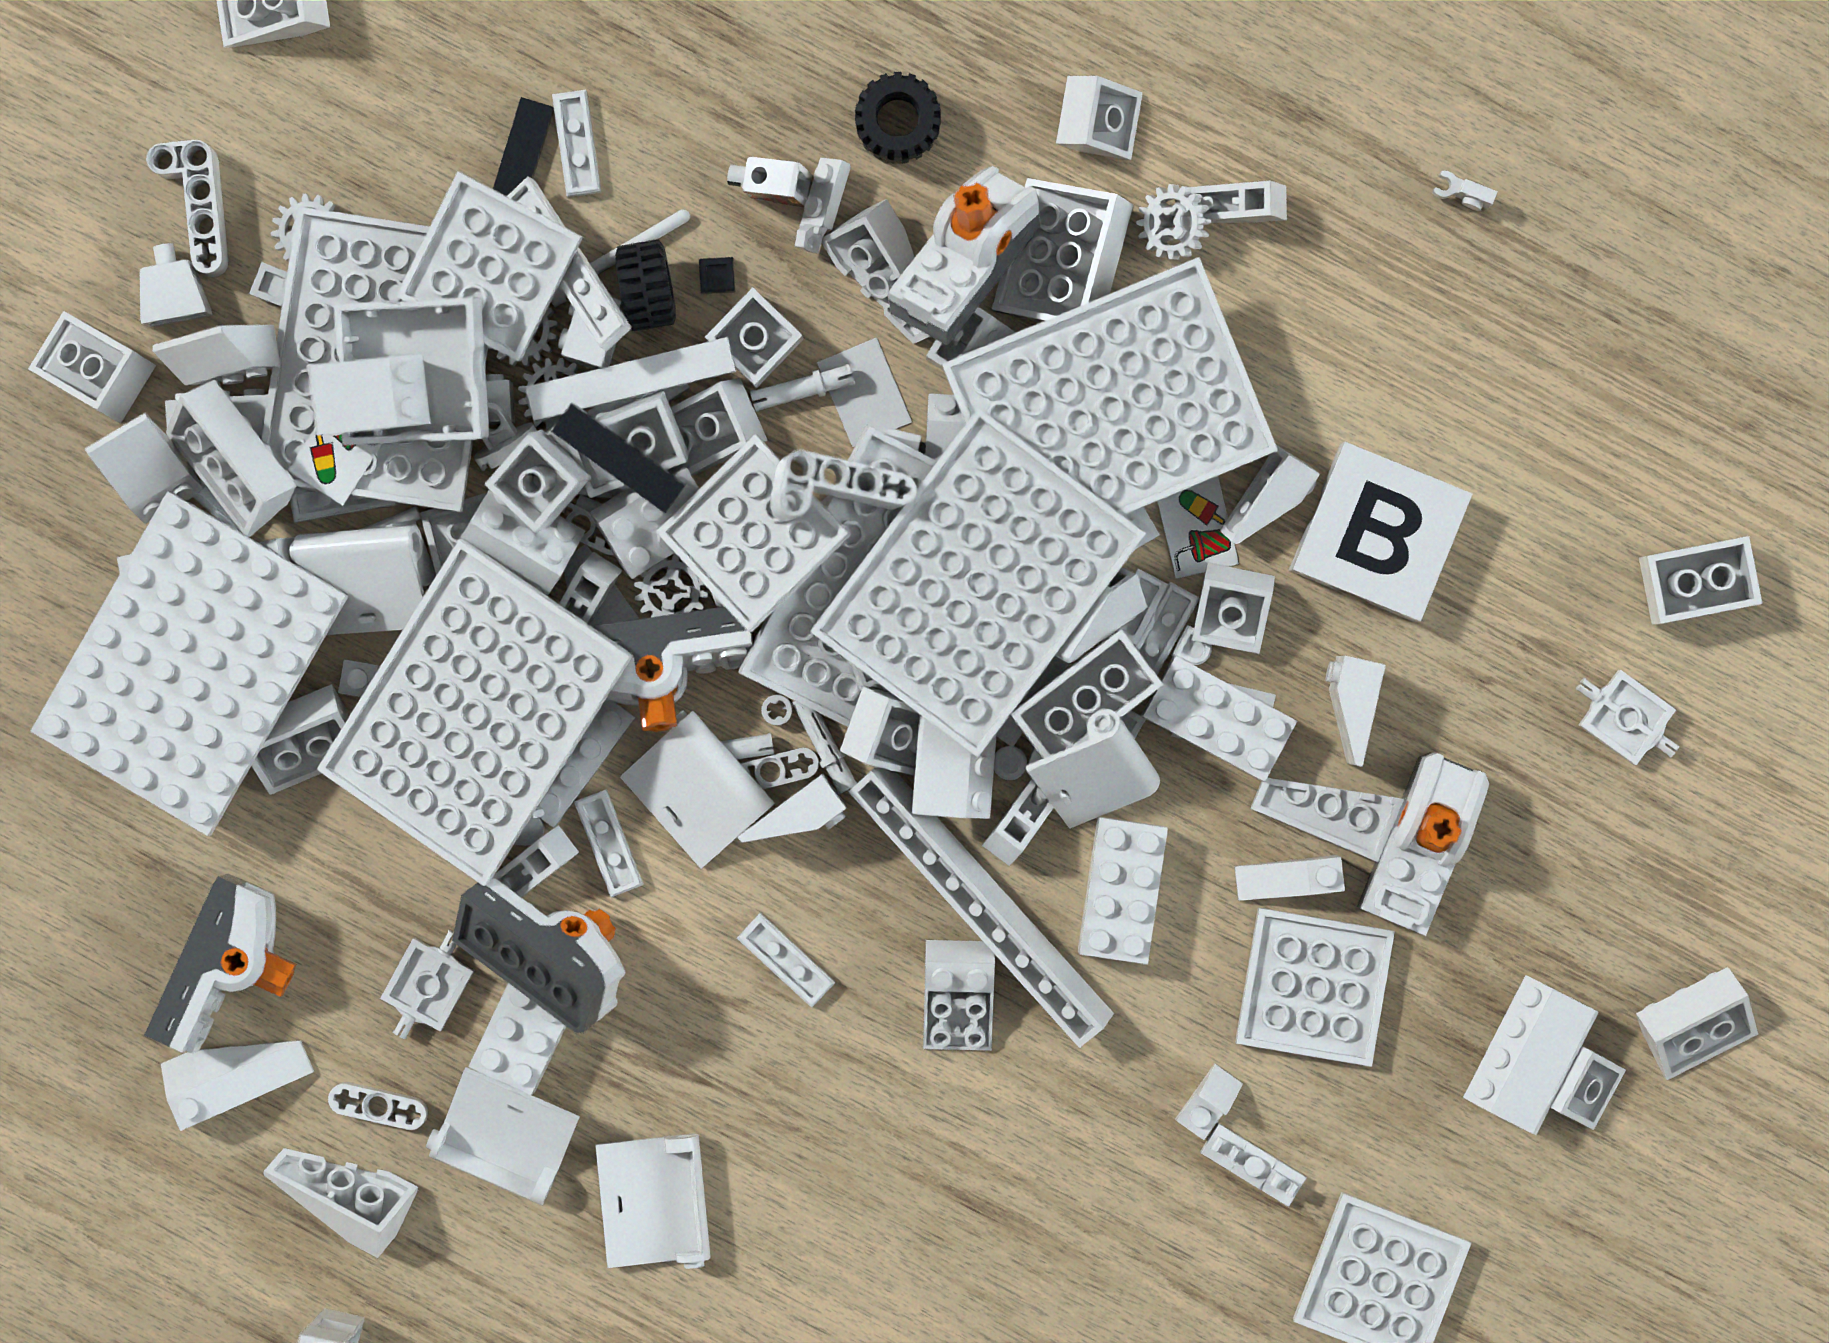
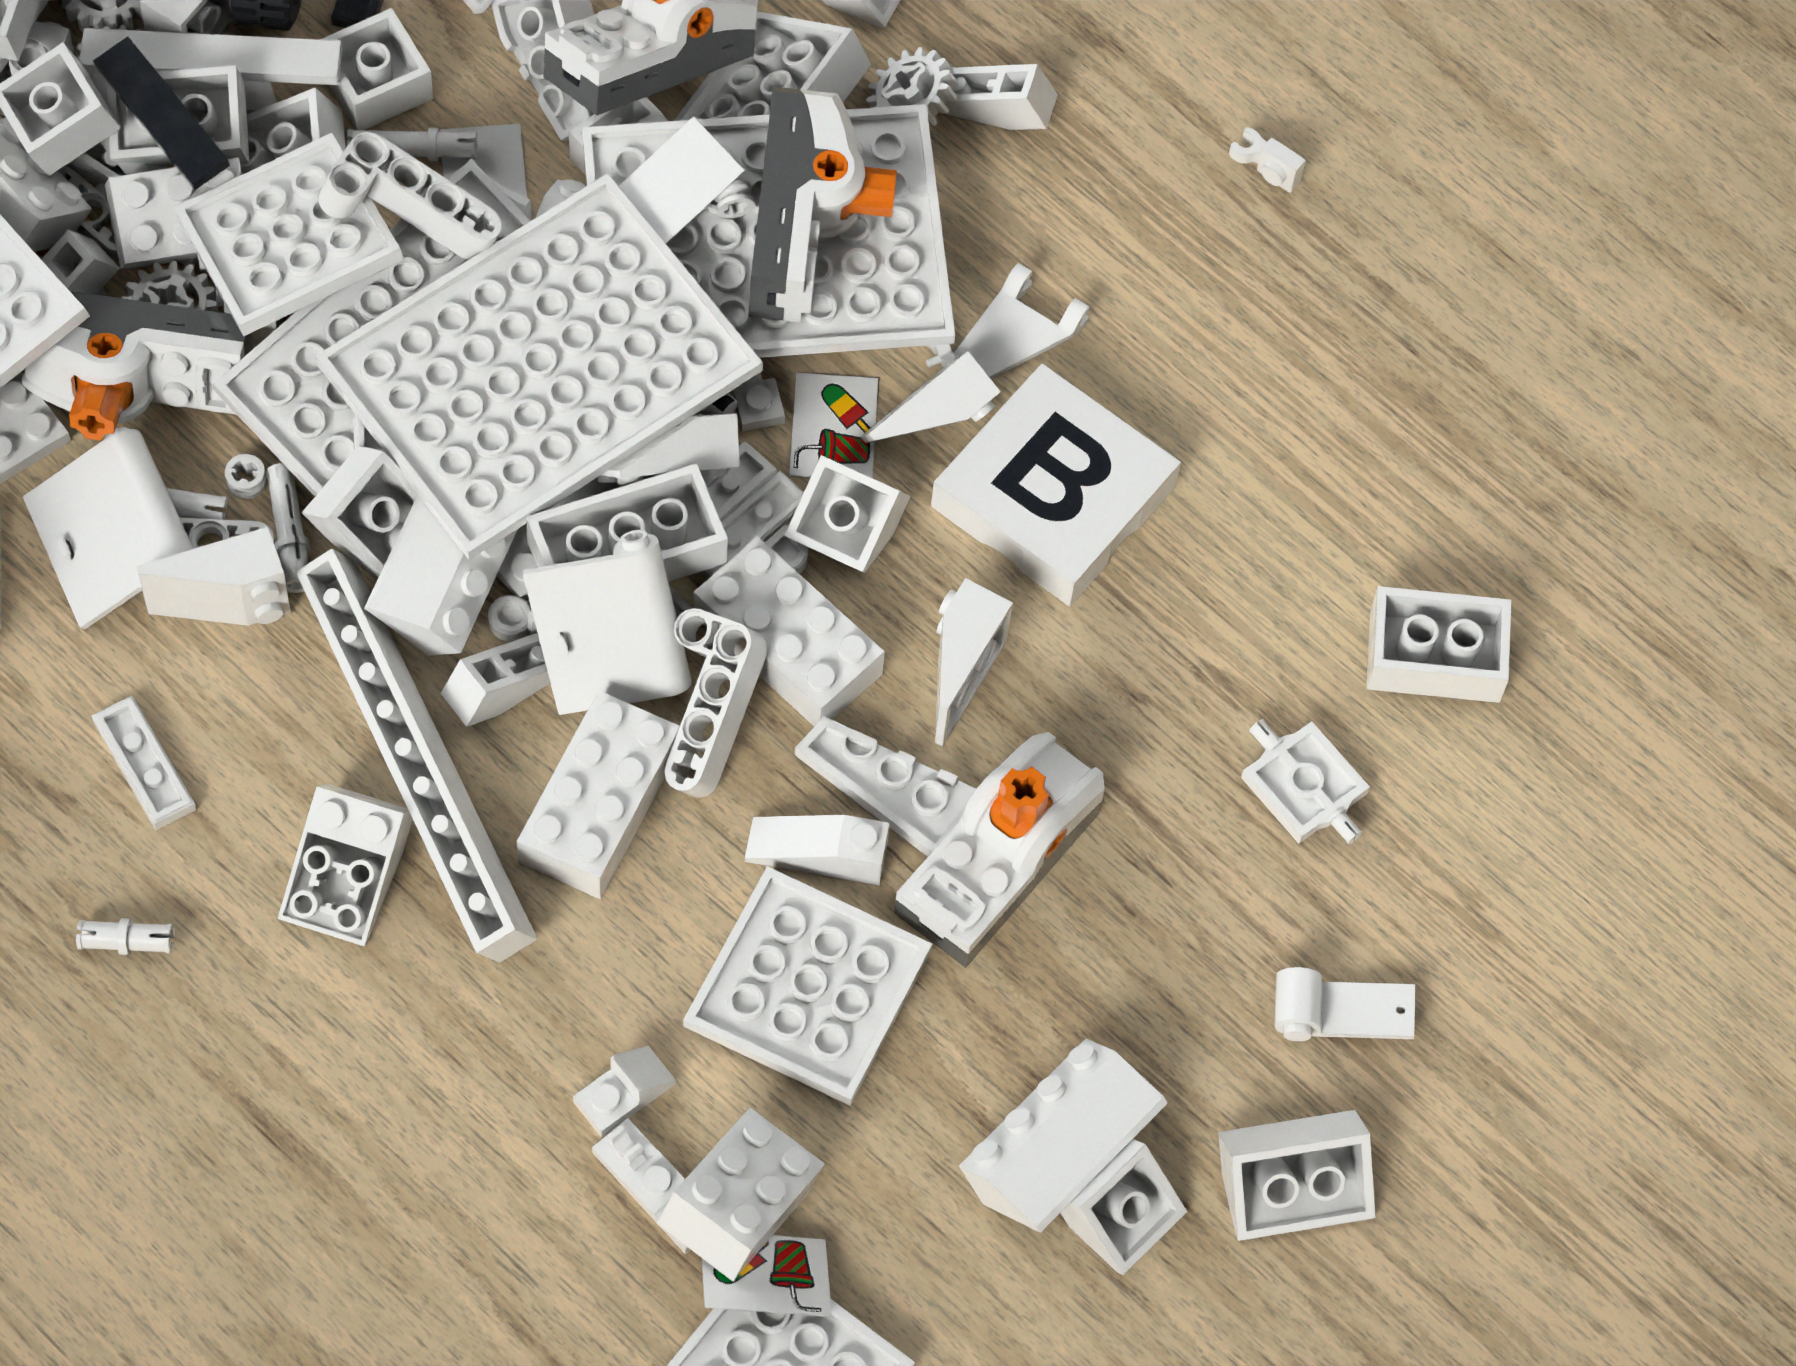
camera: 10 degrees right, 25 degrees down
(823, 1099) = (125, 936): none -> white pin
(1034, 396) = (680, 179): none -> white sticker
(1080, 395) = (735, 200): none -> white bush
(1123, 345) = (809, 191): none -> piece
(1182, 803) = (705, 704): none -> white beam
(1309, 405) = (1016, 333): none -> white flag
(1321, 1169) = (740, 1194): none -> white brick
(1352, 1214) = (781, 1278): none -> white sticker
(1698, 885) = (1341, 1009): none -> white door

